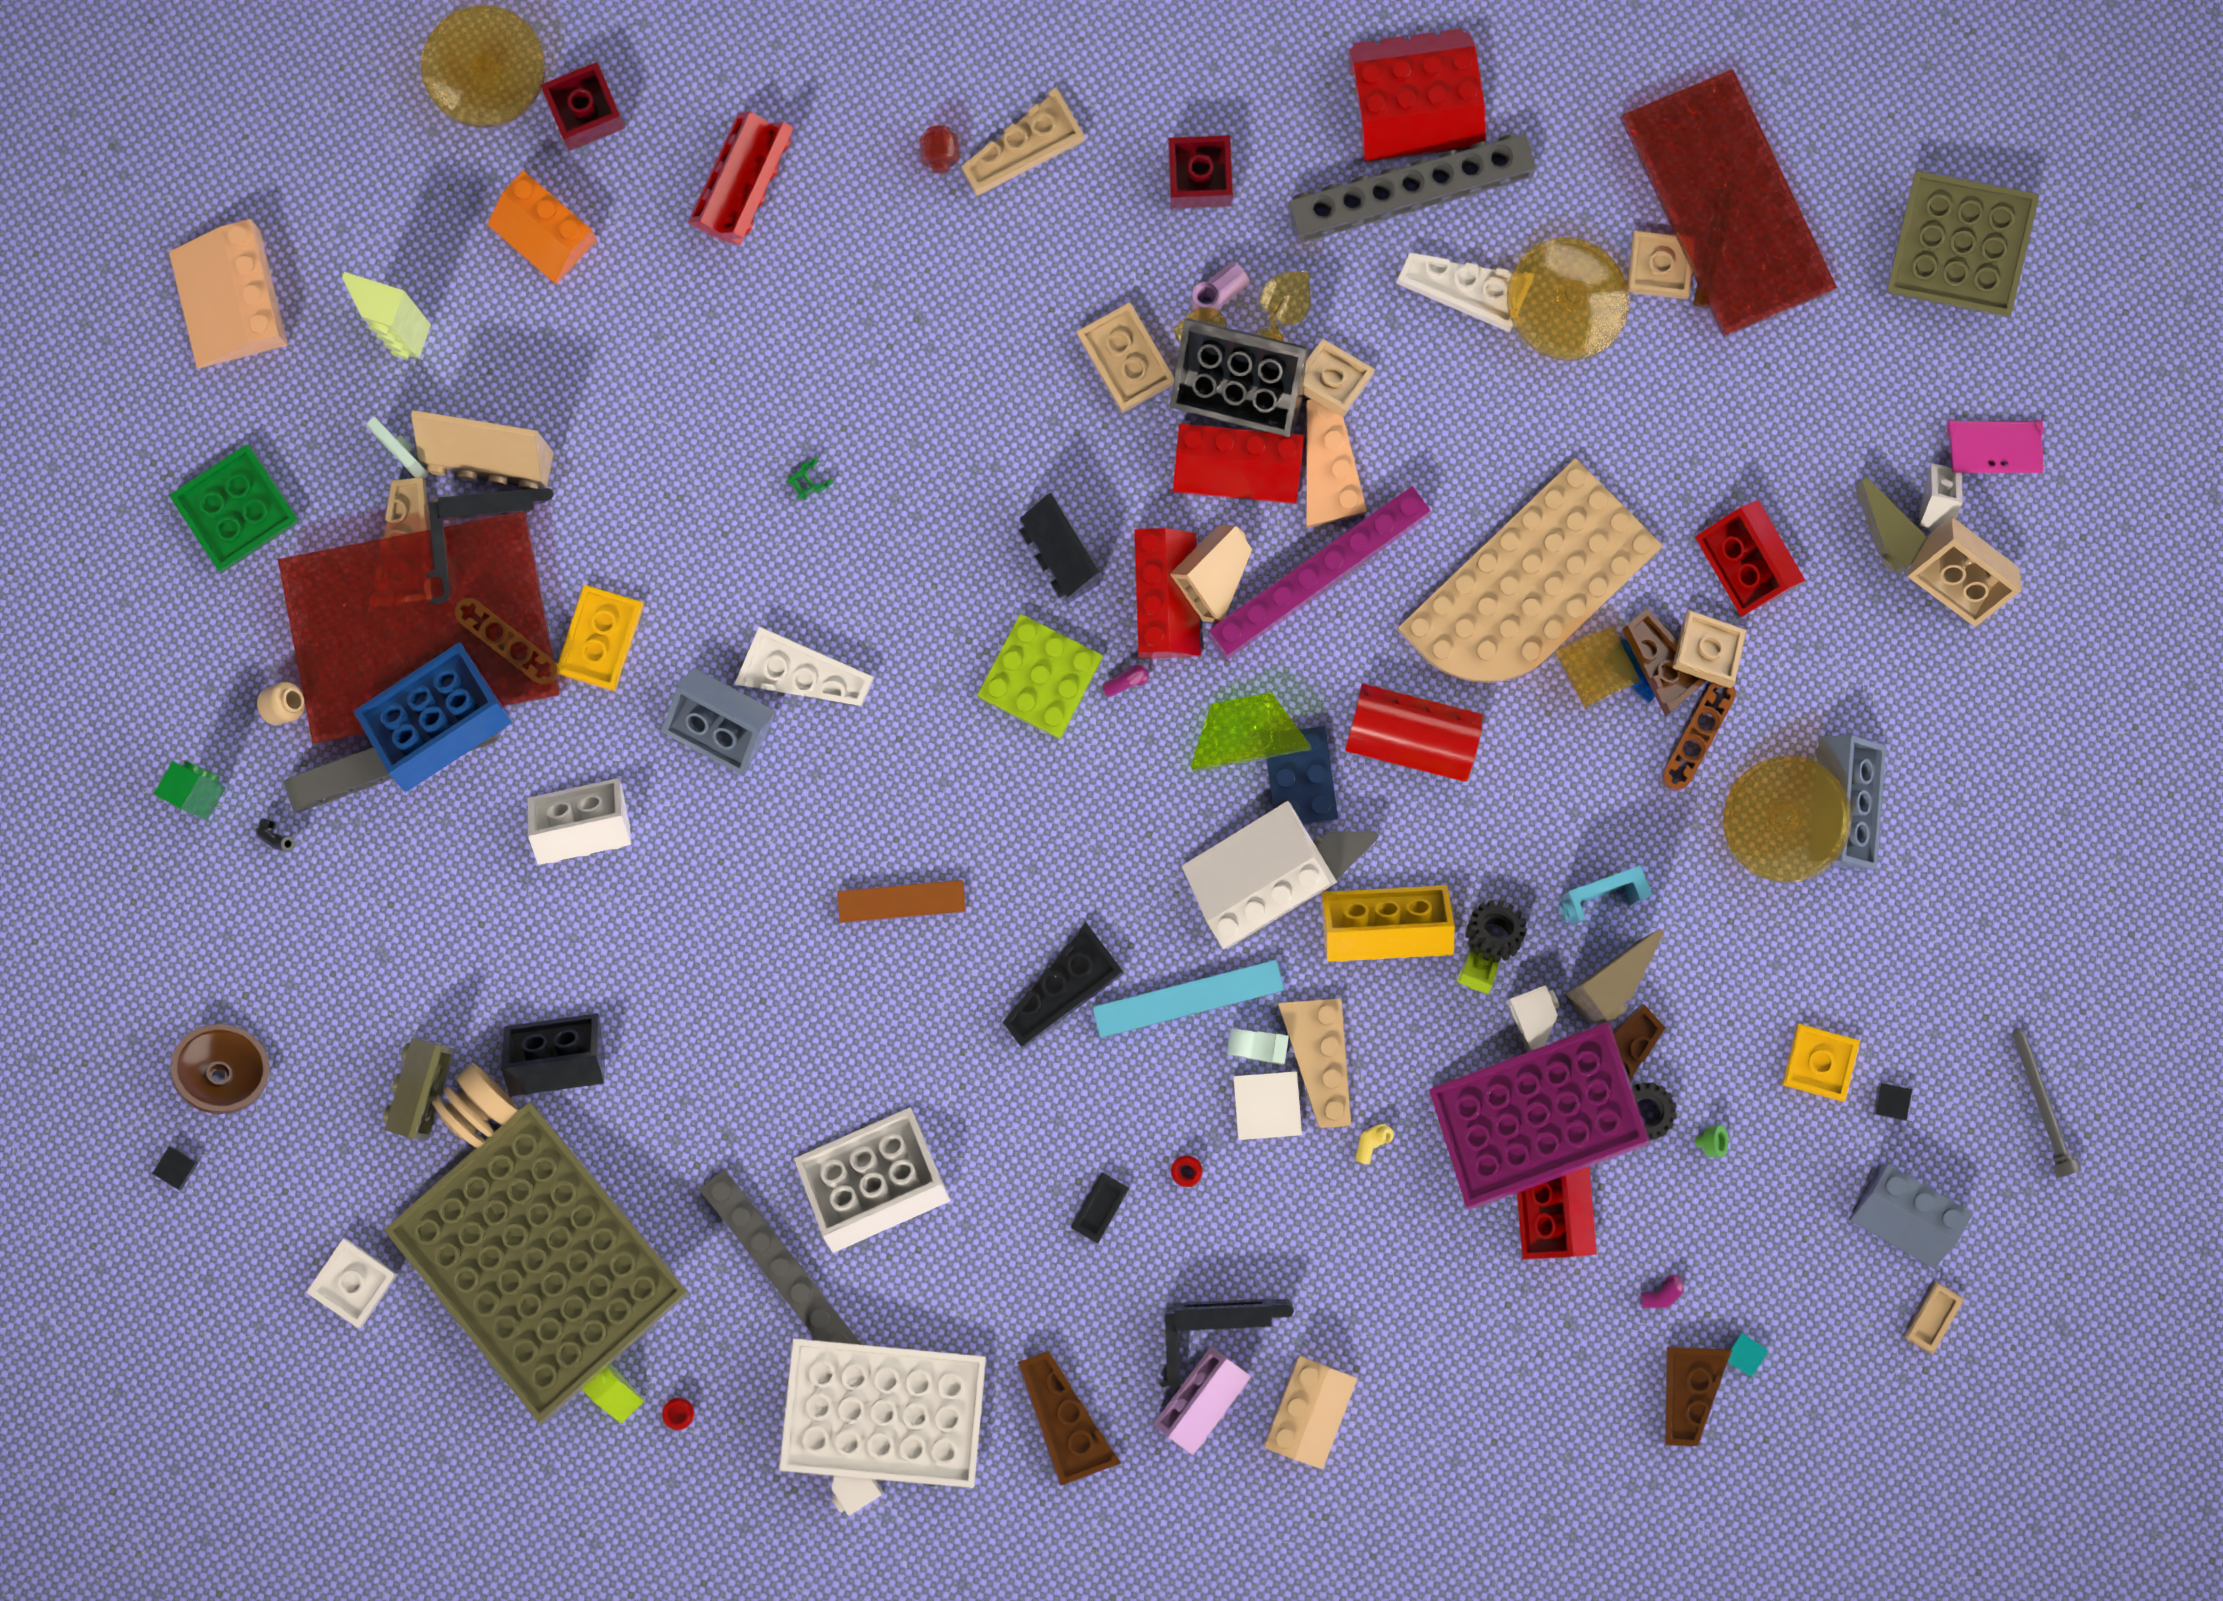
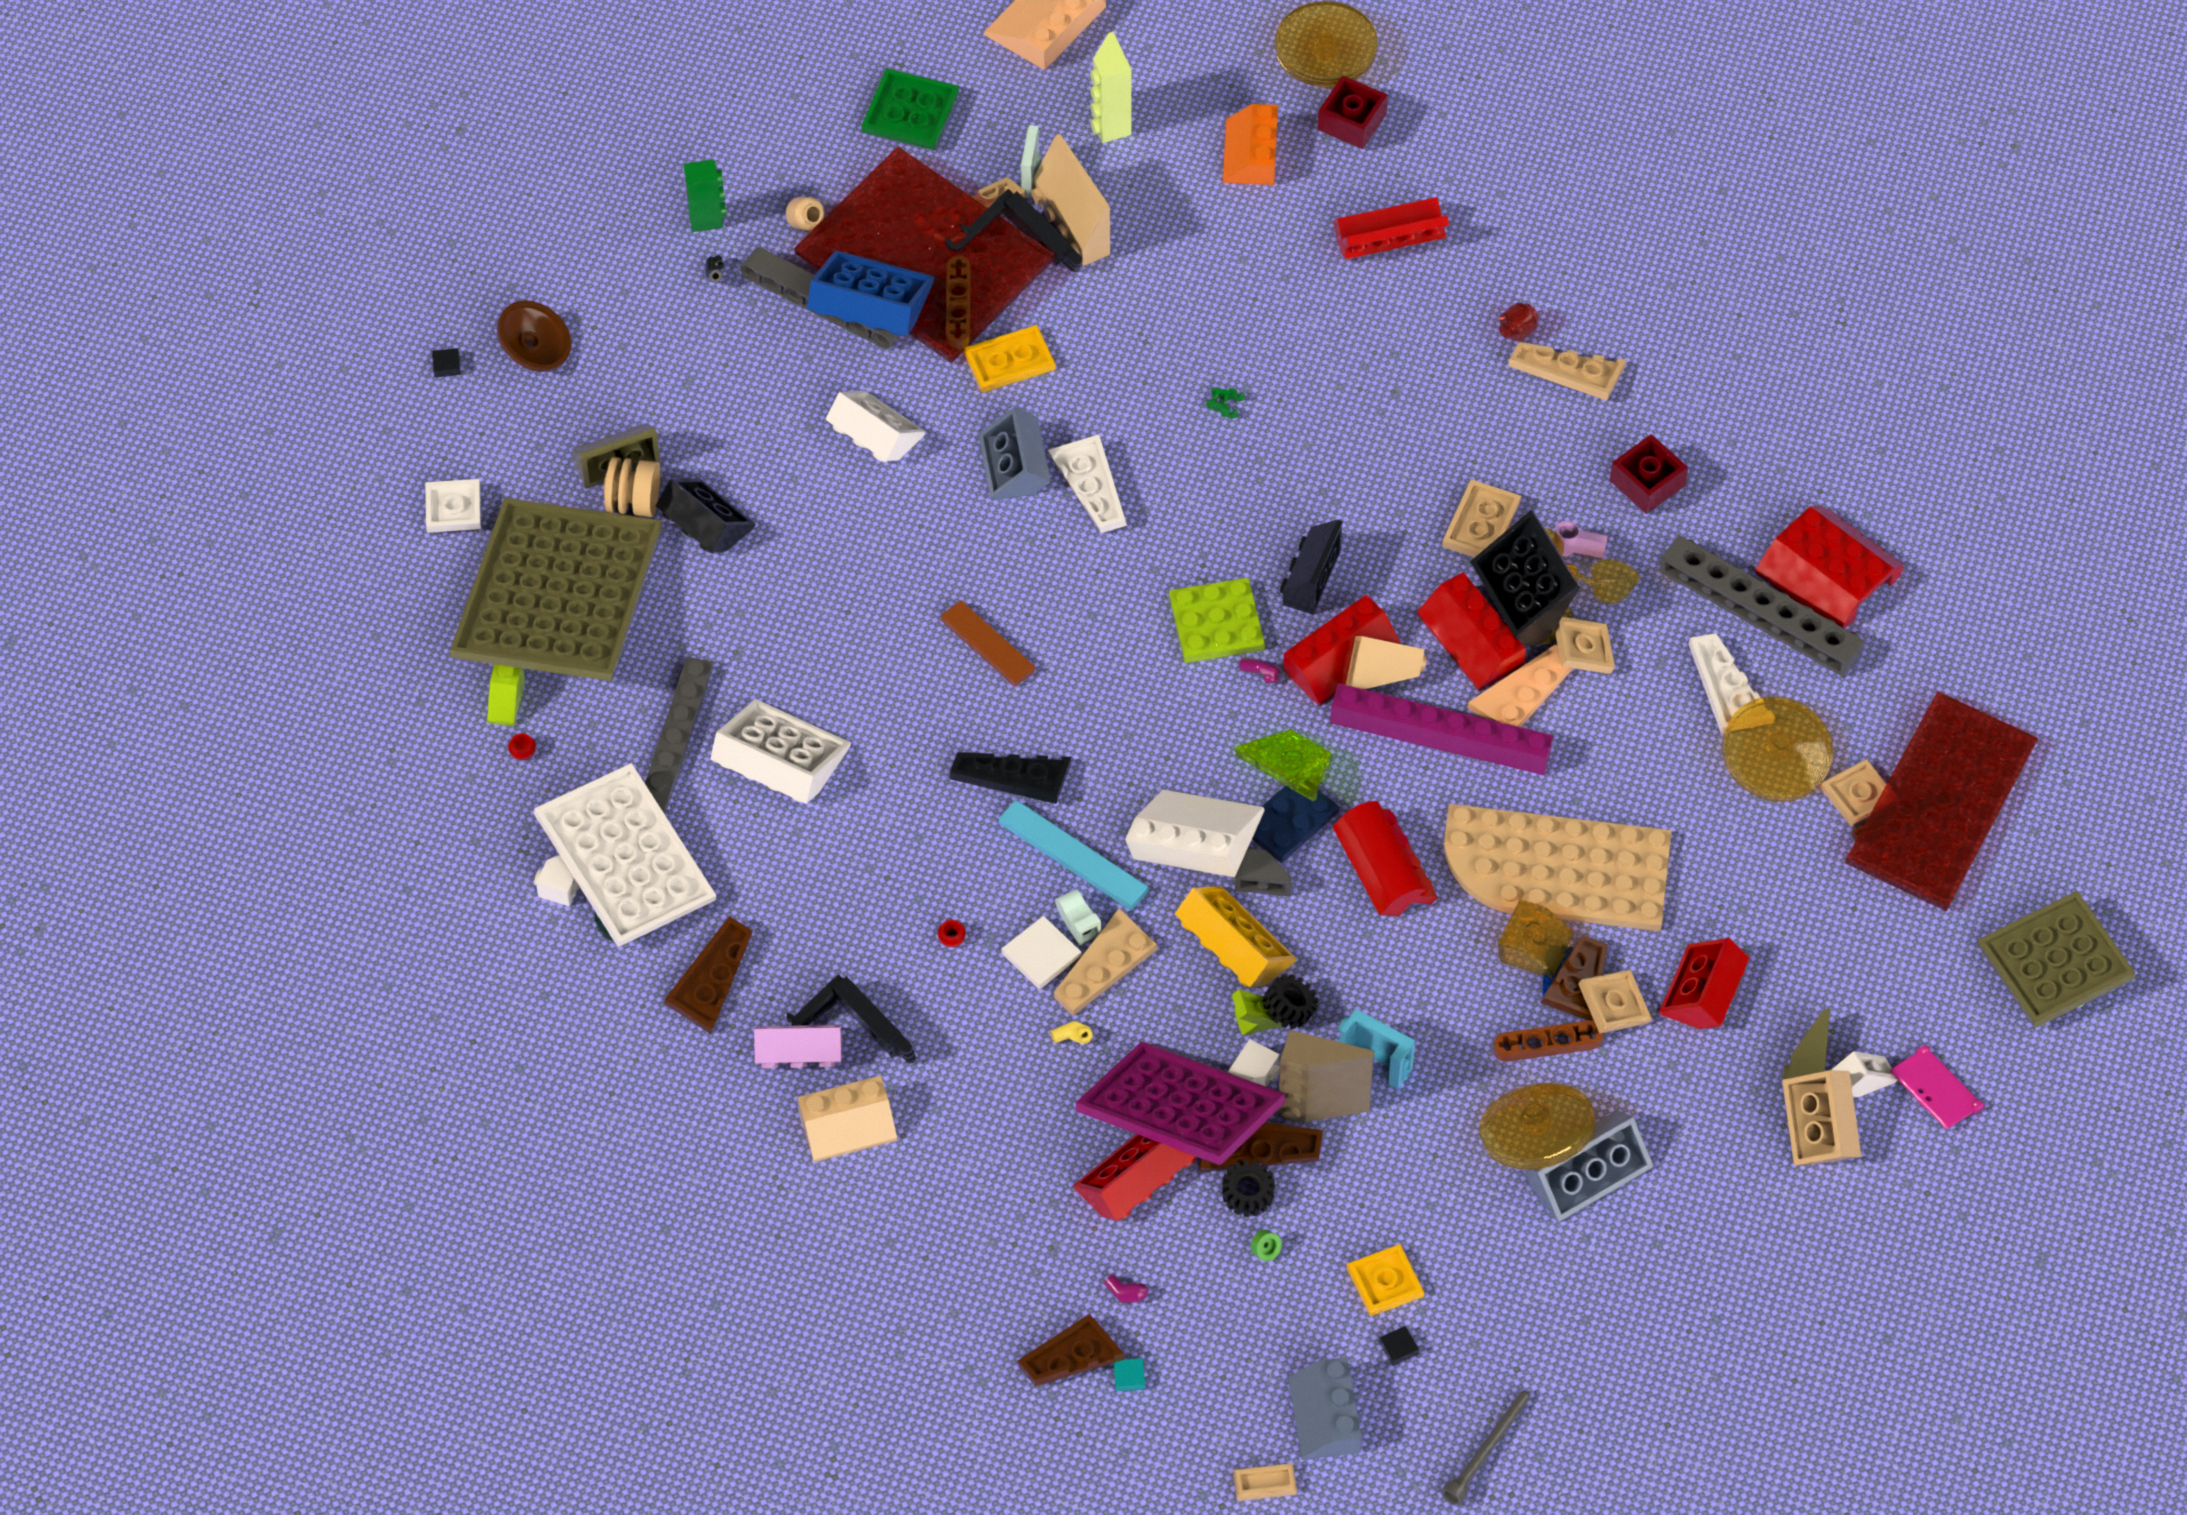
camera: 50 degrees right, 25 degrees down
(1100, 1208) = (880, 900): black tile -> none

